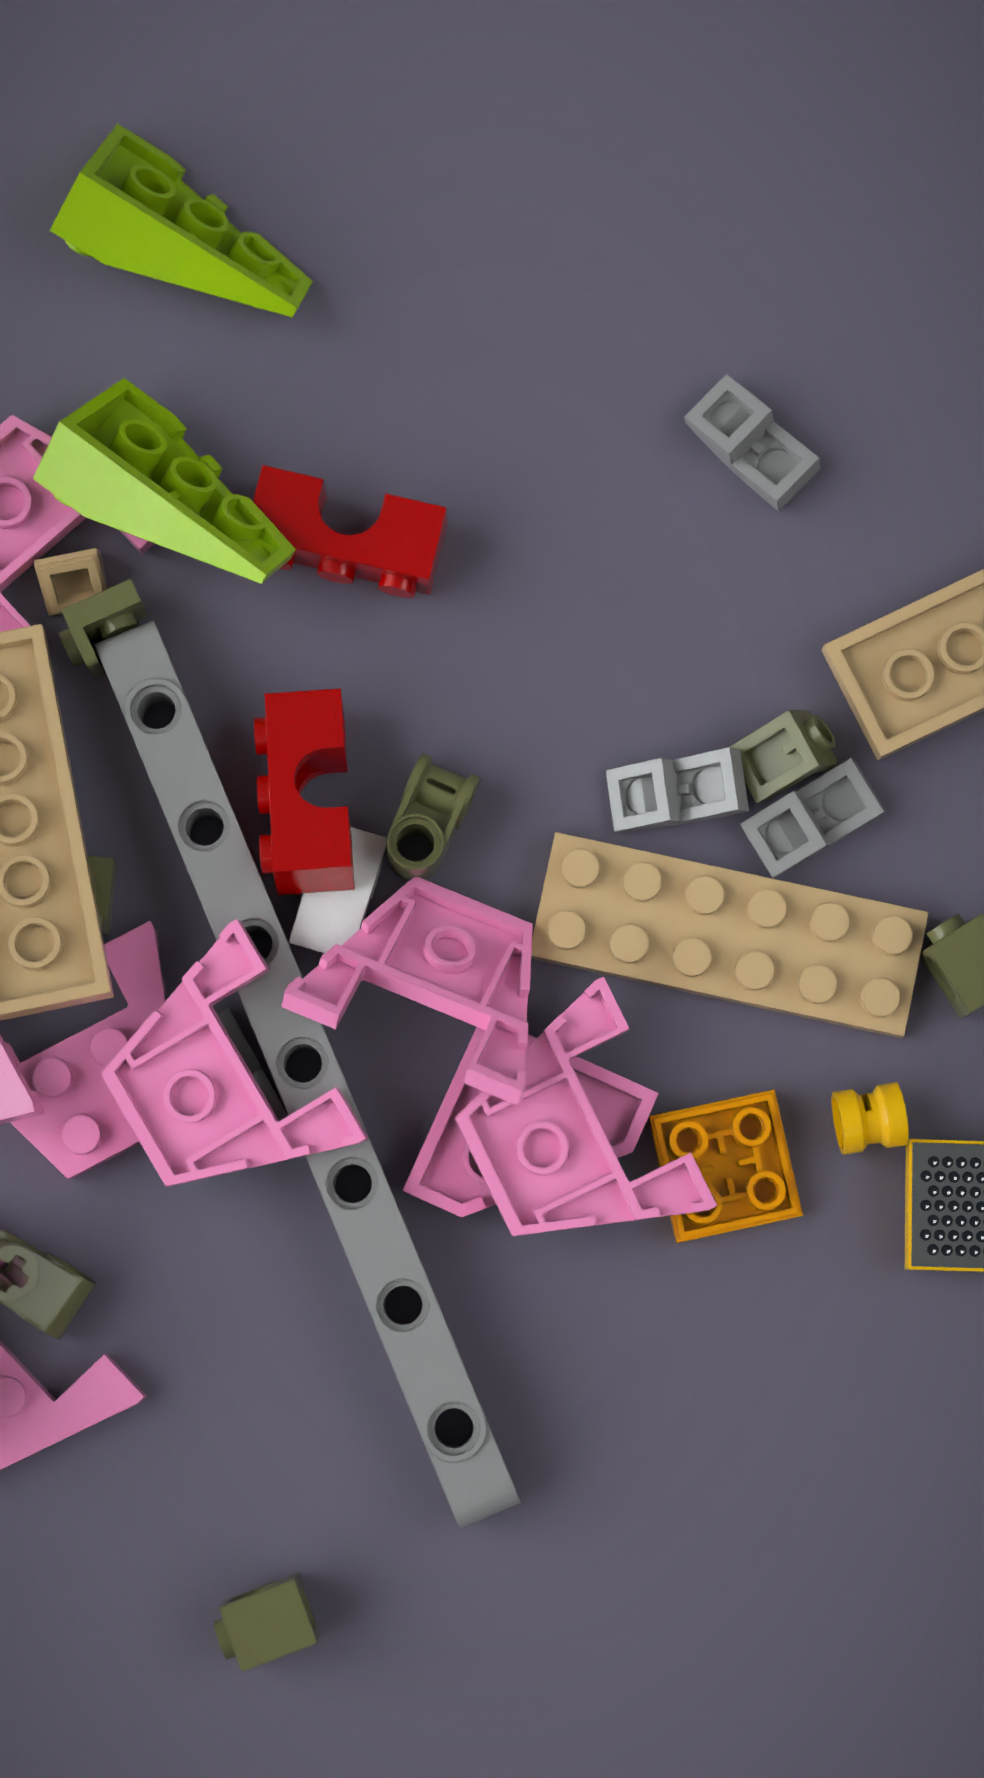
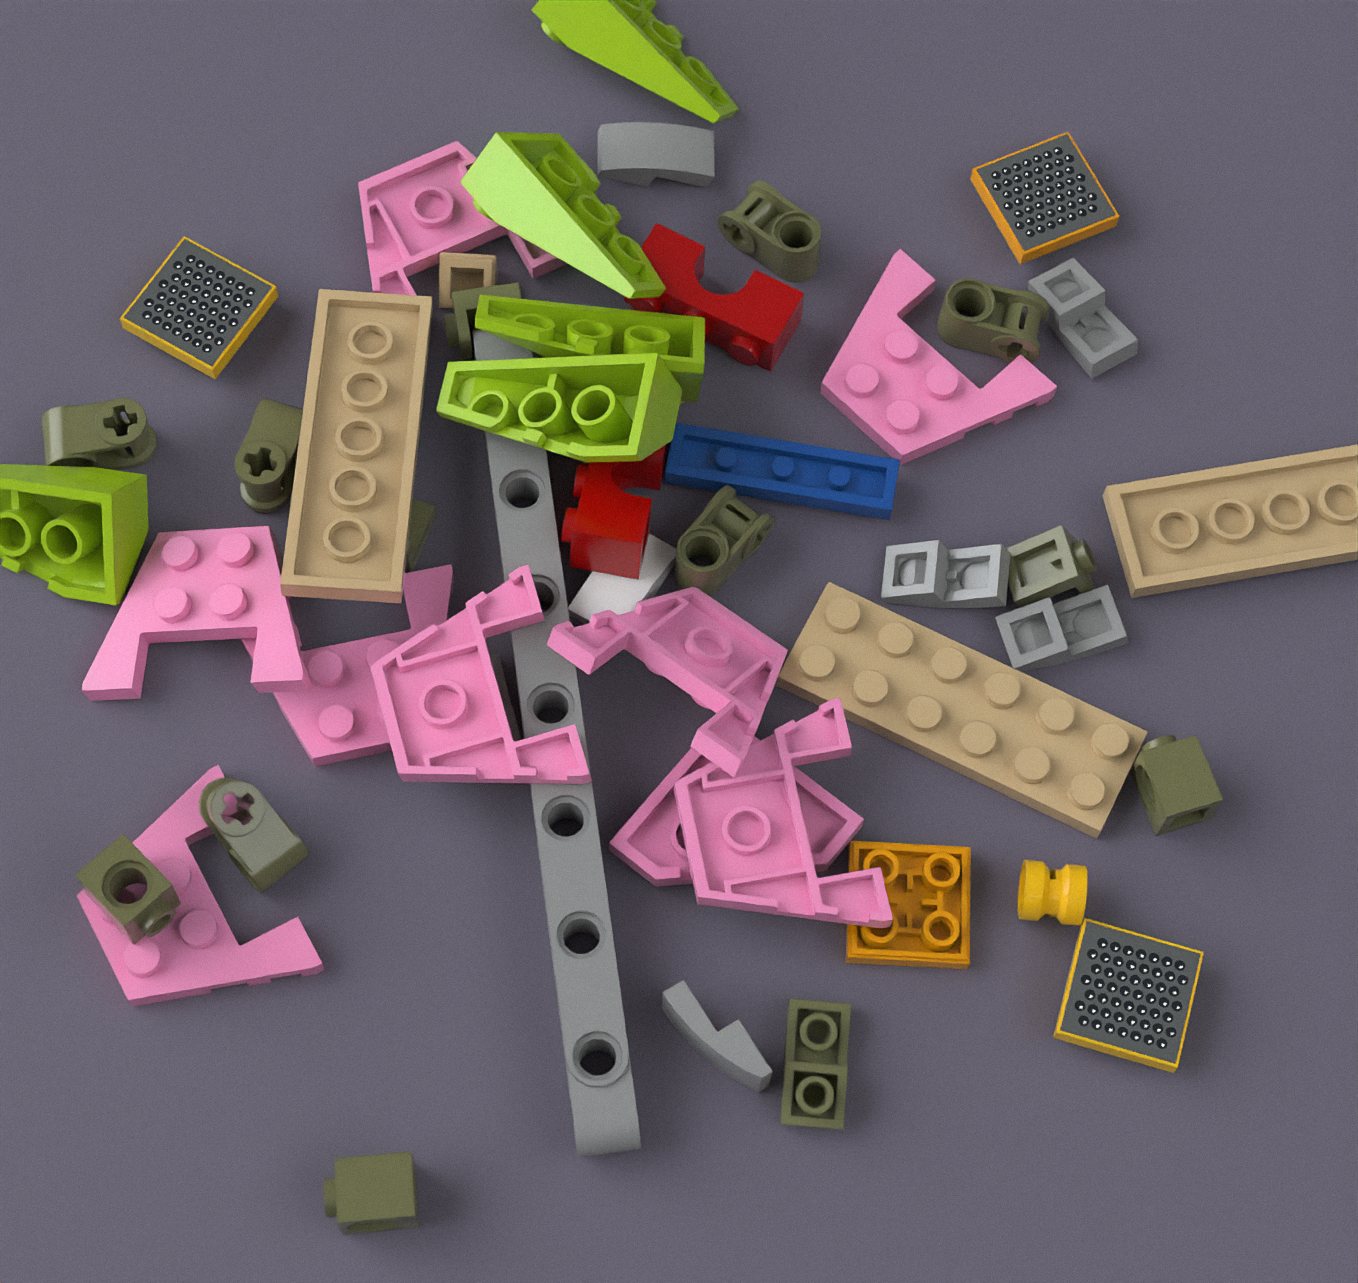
camera: 15 degrees right, 15 degrees down
(235, 730) = (568, 405): none -> lime wedge
(236, 364) = (650, 150): none -> light grey slope
(275, 626) = (587, 330): none -> lime wedge
(380, 425) = (766, 227): none -> olive piece
(473, 716) = (782, 471): none -> blue plate
(580, 579) = (904, 388): none -> bright pink wing
(581, 1376) = (727, 1050): none -> light grey slope
(664, 476) = (995, 320): none -> olive piece
(672, 1362) = (815, 1063): none -> olive slope
(678, 308) = (1044, 197): none -> tile

